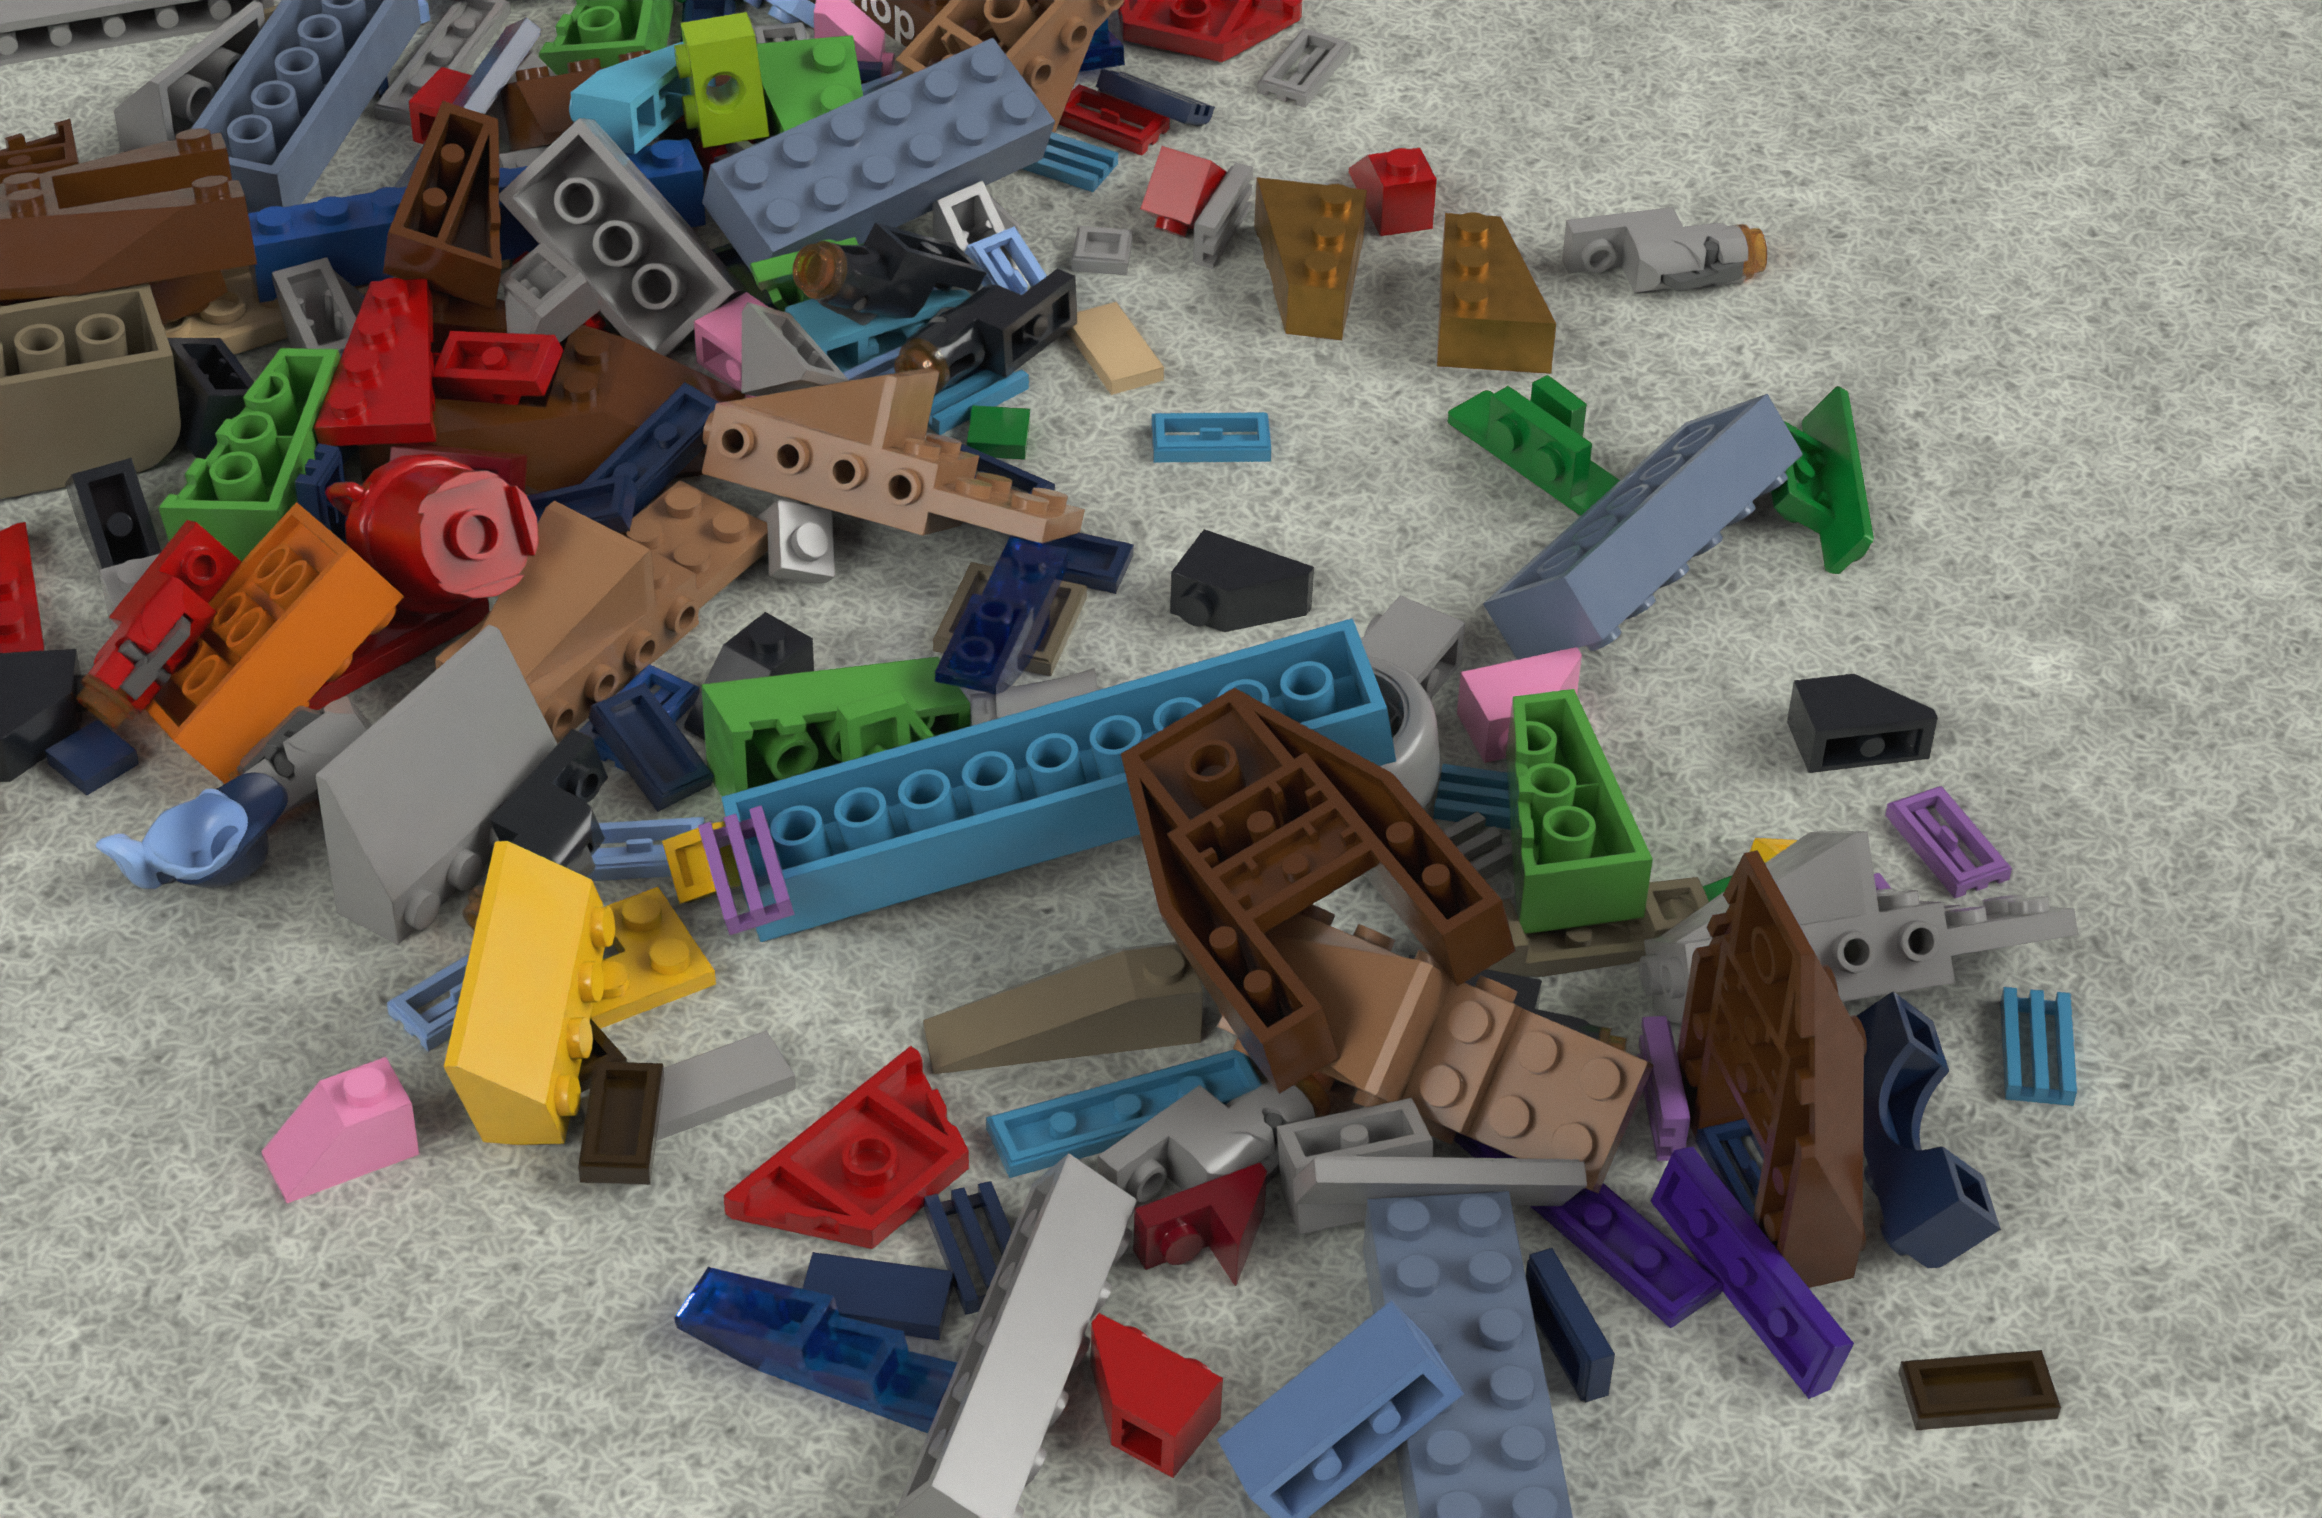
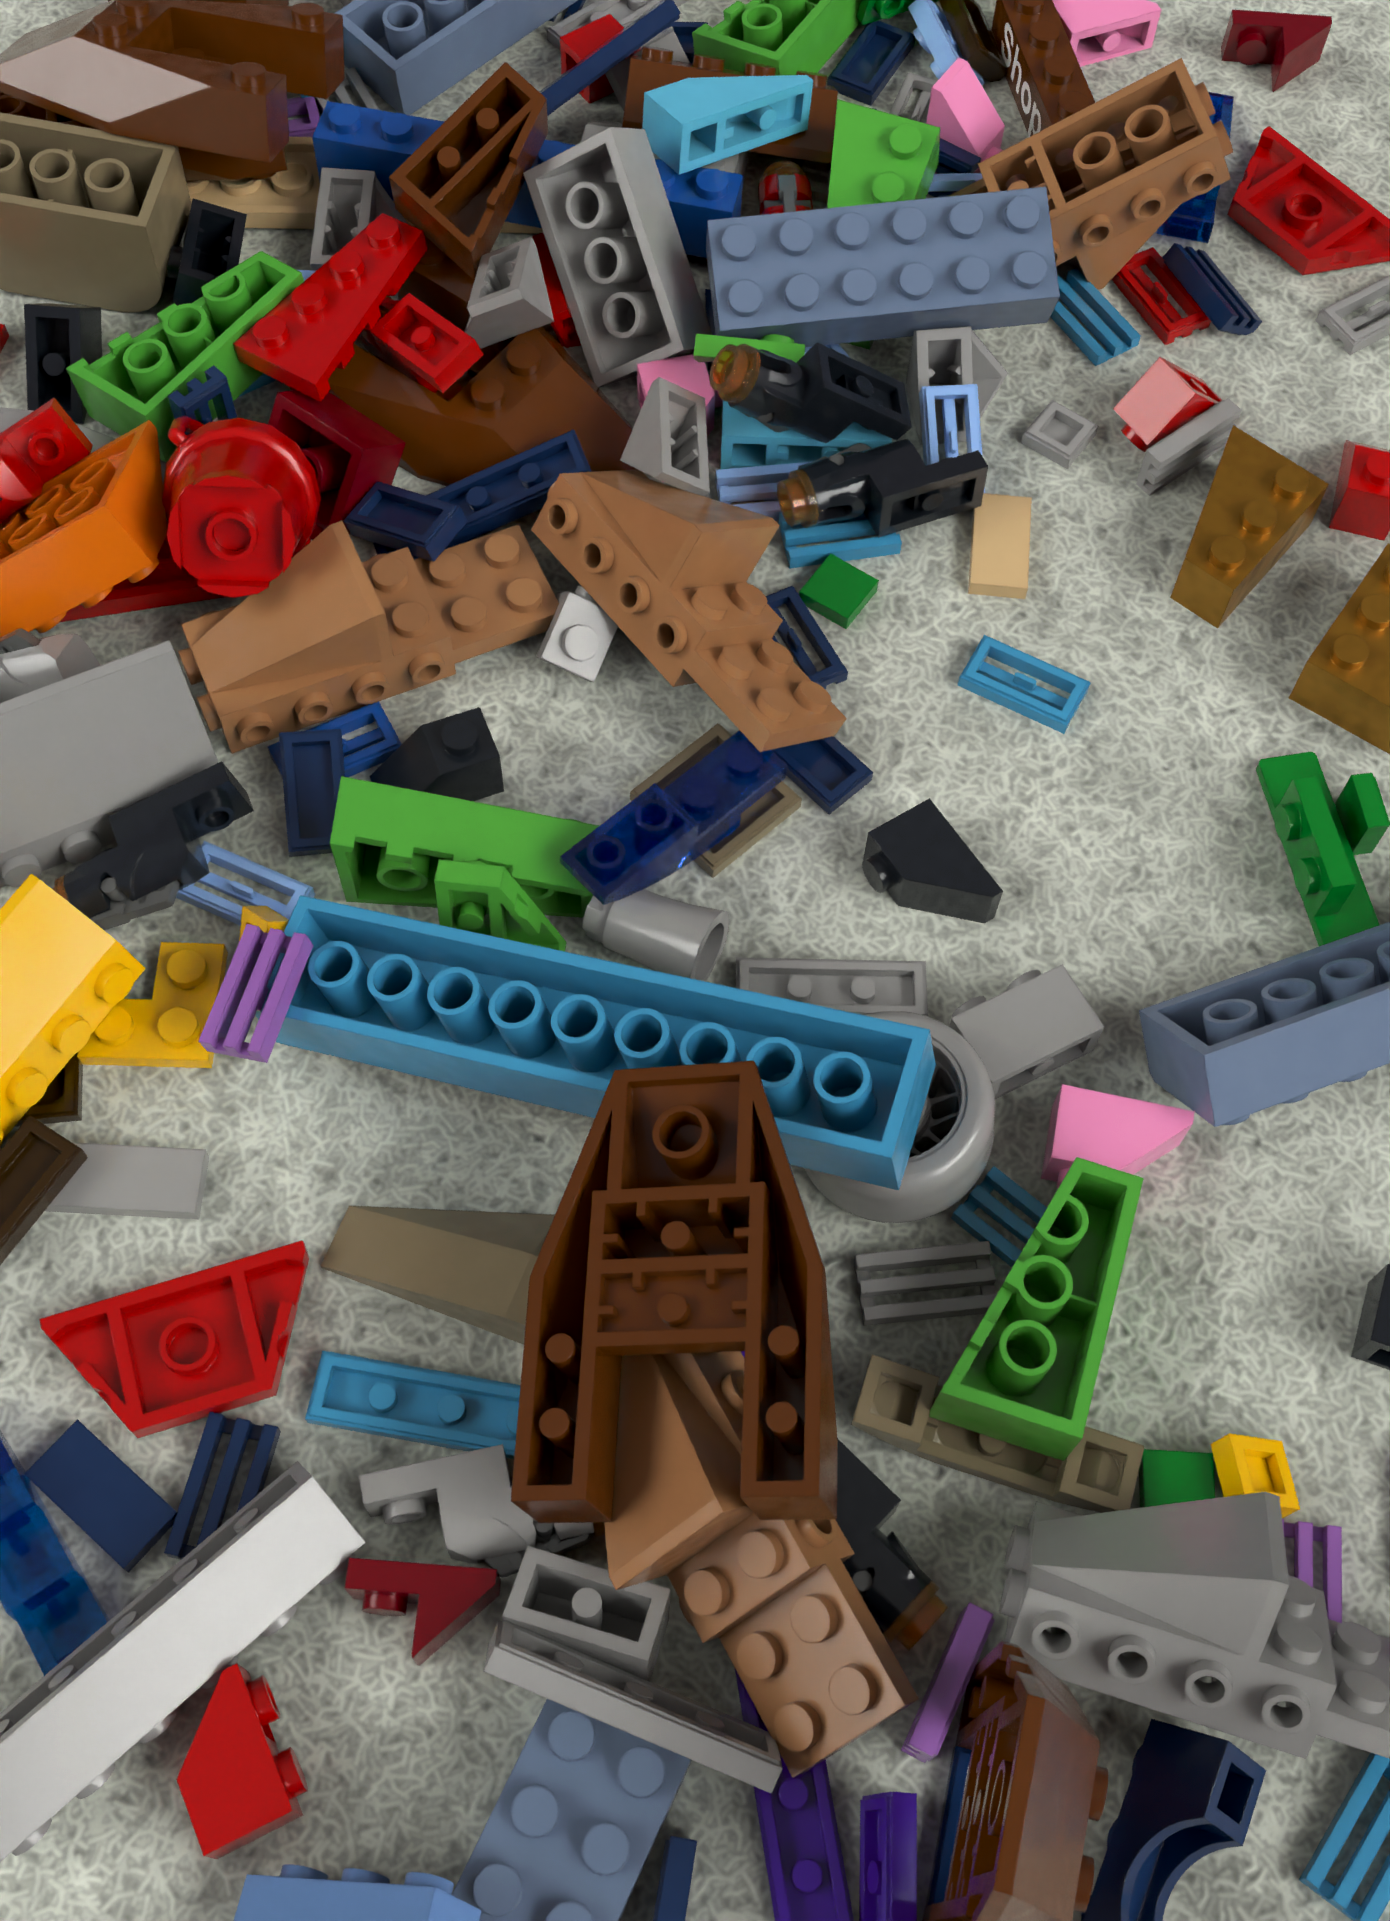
camera: 30 degrees right, 20 degrees up
(722, 48) = (804, 102): lime brick -> none

